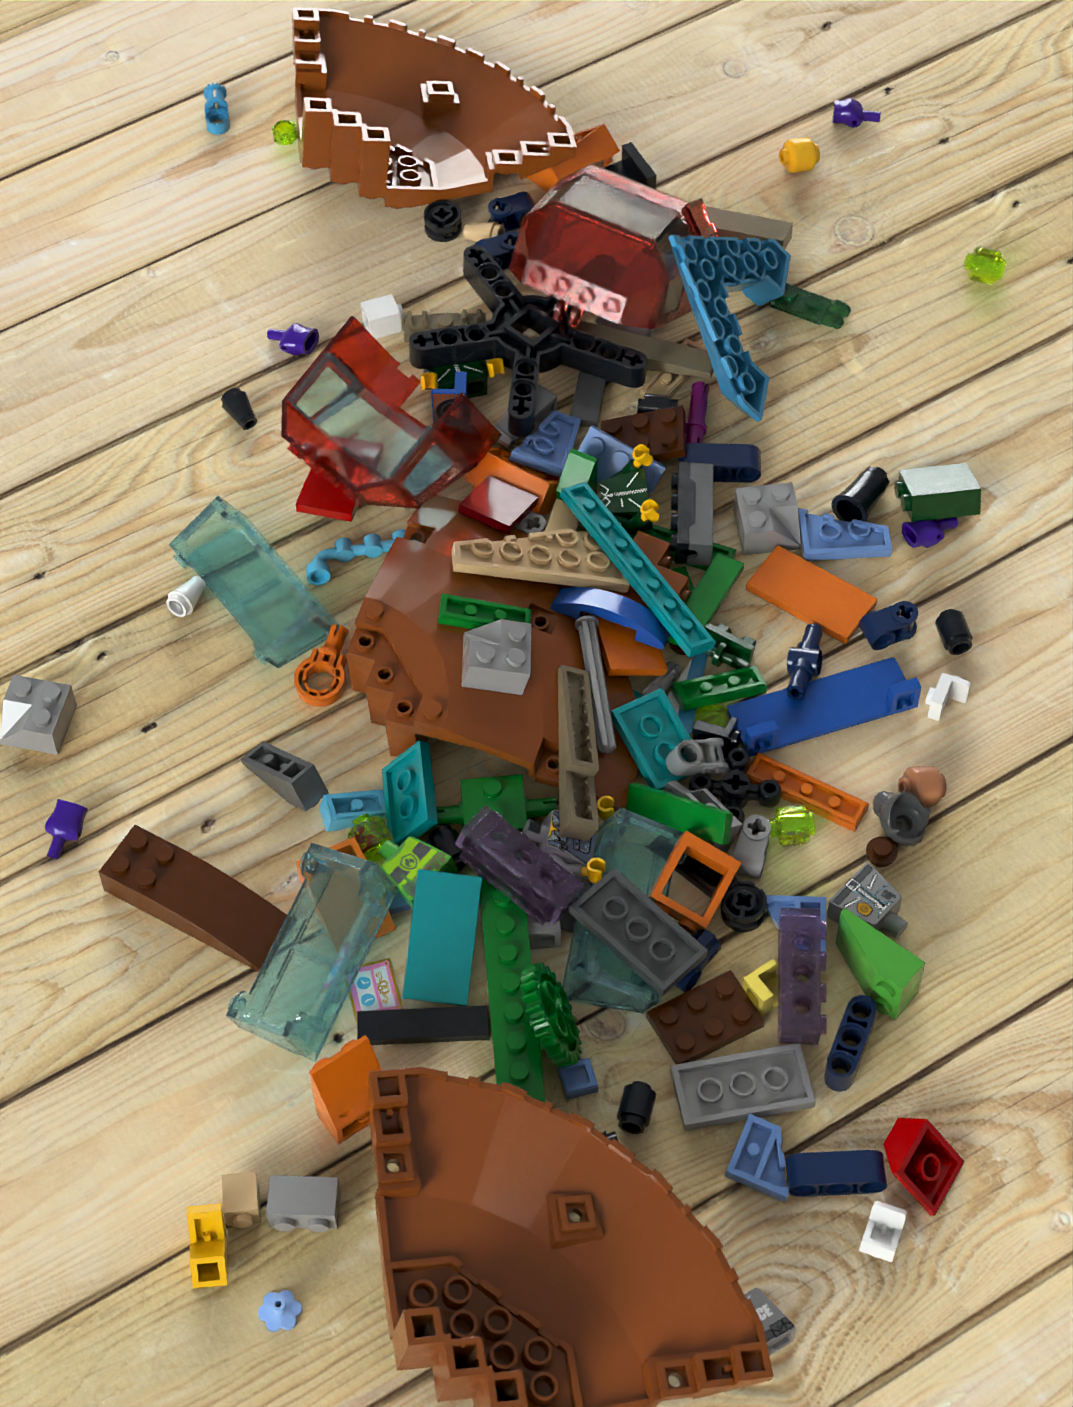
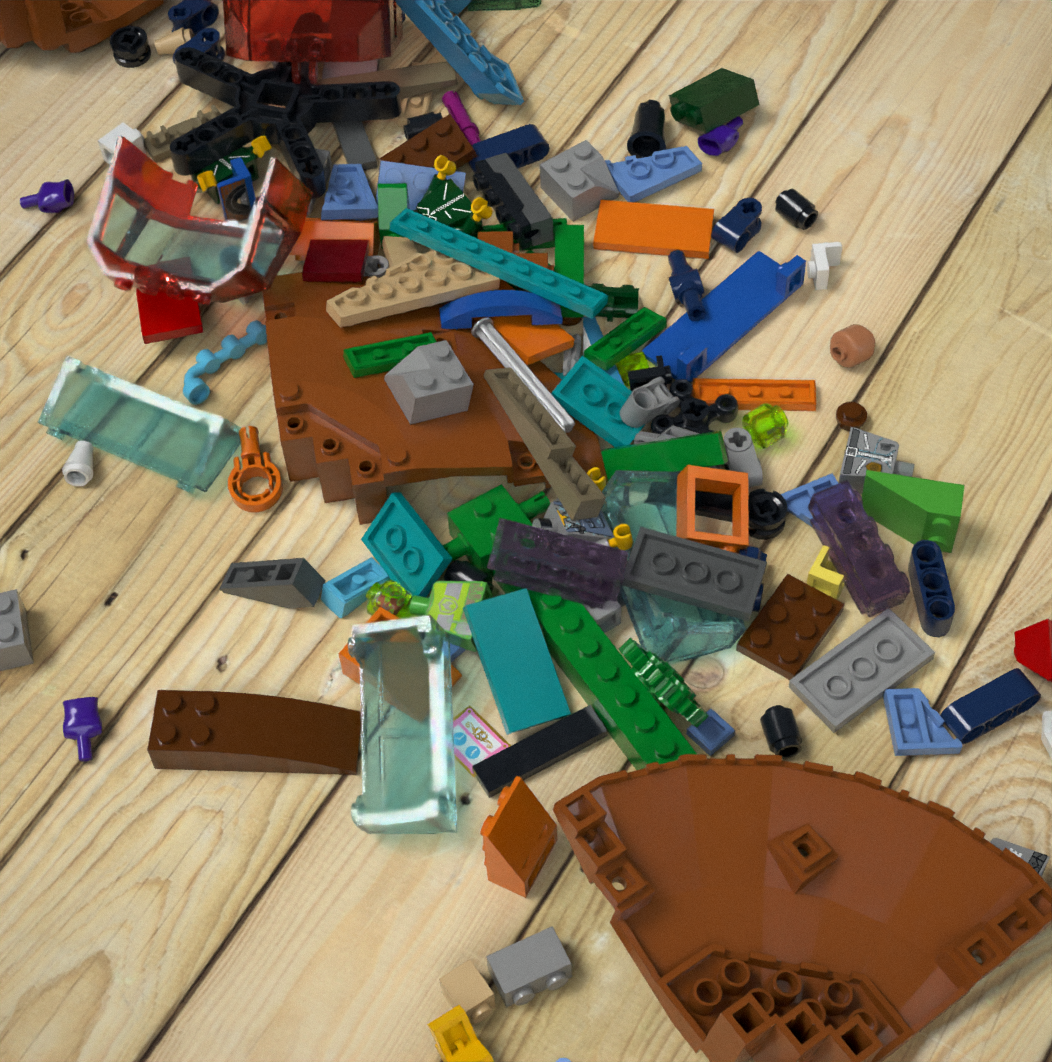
camera: 25 degrees left, 0 degrees up
(239, 408) = (30, 276): black cone -> none
(902, 809) = (850, 378): dark grey piece -> none

